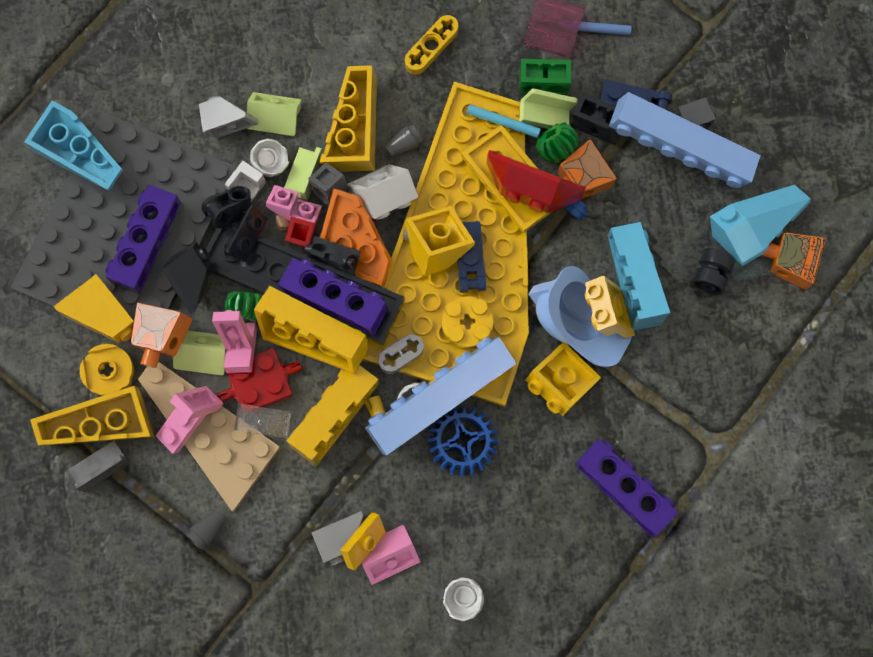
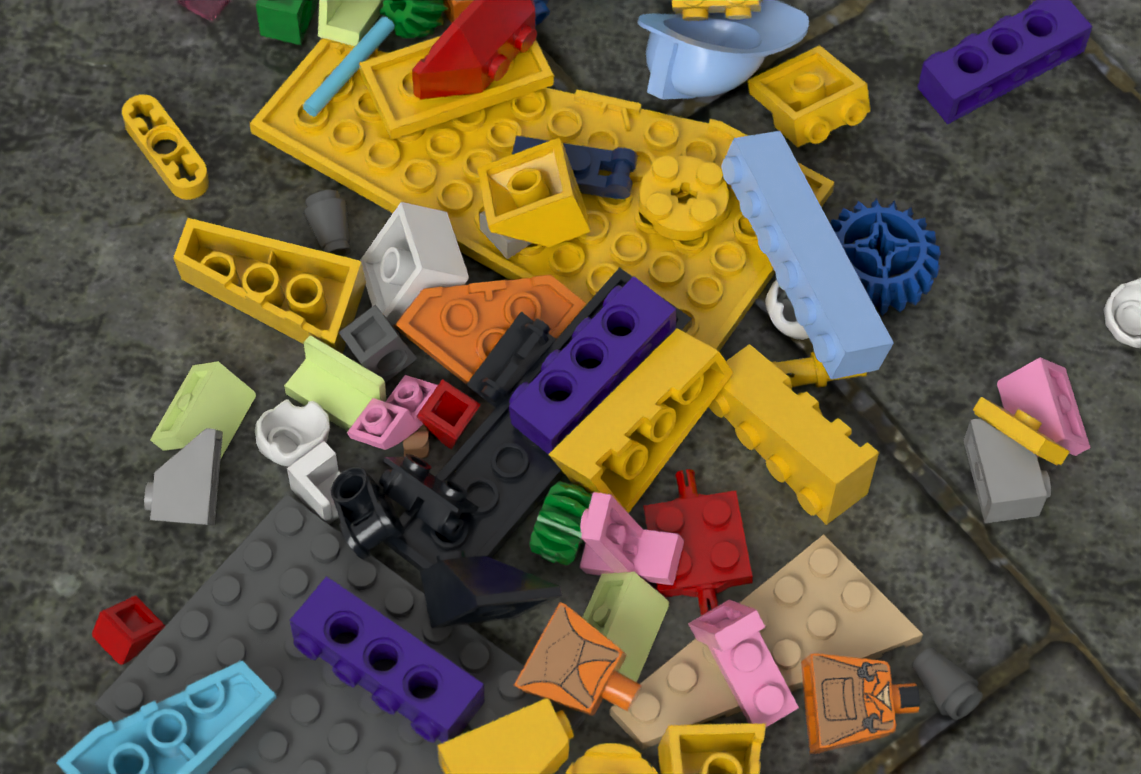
camera: 75 degrees left, 15 degrees down
(148, 115) = (126, 629): none -> red slope
(179, 480) = (851, 700): none -> torso
(262, 421) = (775, 544): clear plate -> none
(398, 348) = (721, 301): light grey beam -> none

